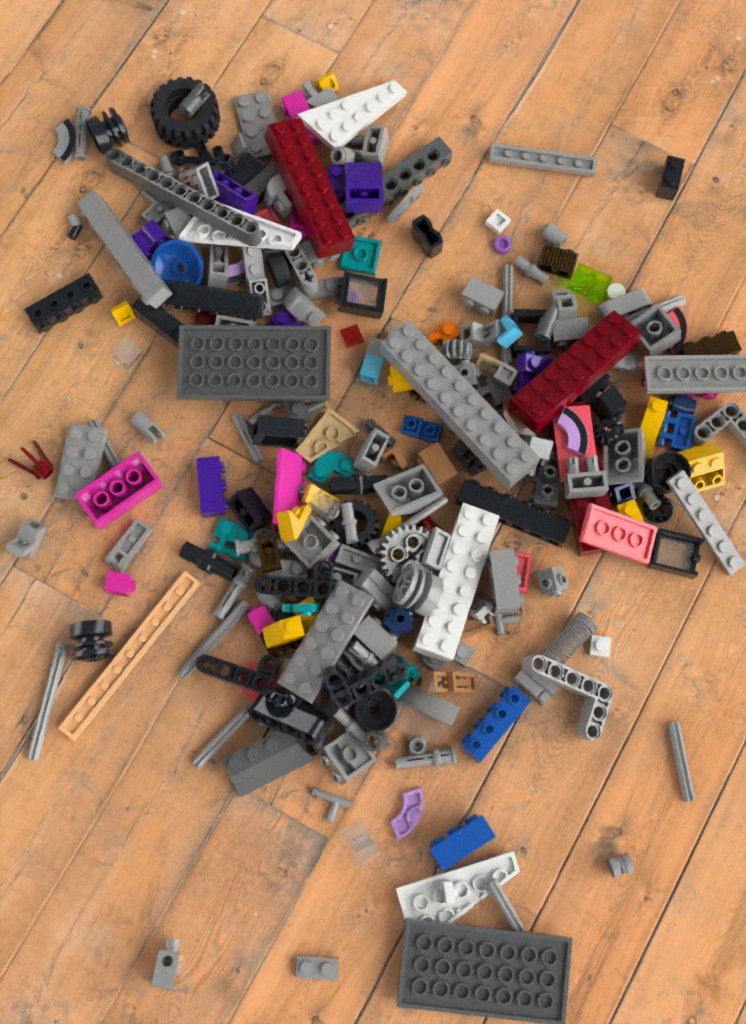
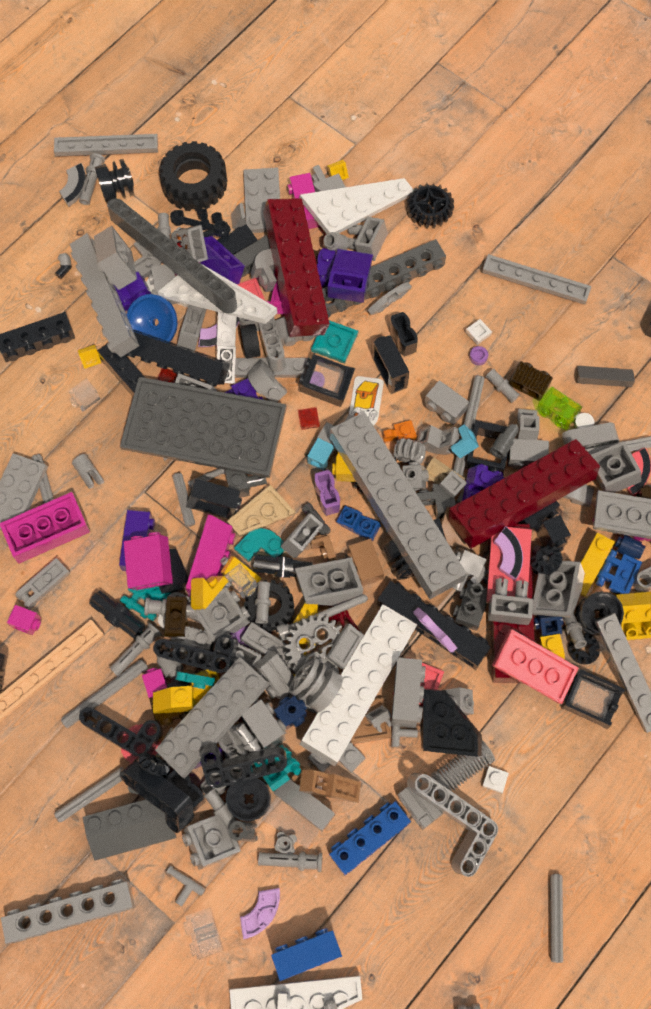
camera: 15 degrees right, 5 degrees down
(88, 95) = (106, 144): none -> light grey plate
(126, 210) = (114, 258): none -> light grey brick
(181, 879) = (15, 932): none -> light grey brick
(192, 101) = (200, 166): dark grey hinge -> none
(229, 504) = (147, 561): none -> dark pink brick
(386, 405) = (326, 491): none -> medium lavender brick
(402, 305) = (366, 397): none -> sticker
(420, 268) = (390, 364): none -> black window
(429, 97) = (425, 209): none -> black gear
(524, 522) = (435, 630): none -> lavender tile
(547, 606) = (447, 727): none -> black plate
(553, 234) = (532, 354): light grey brick -> none
(627, 244) = (605, 376): none -> dark grey slope

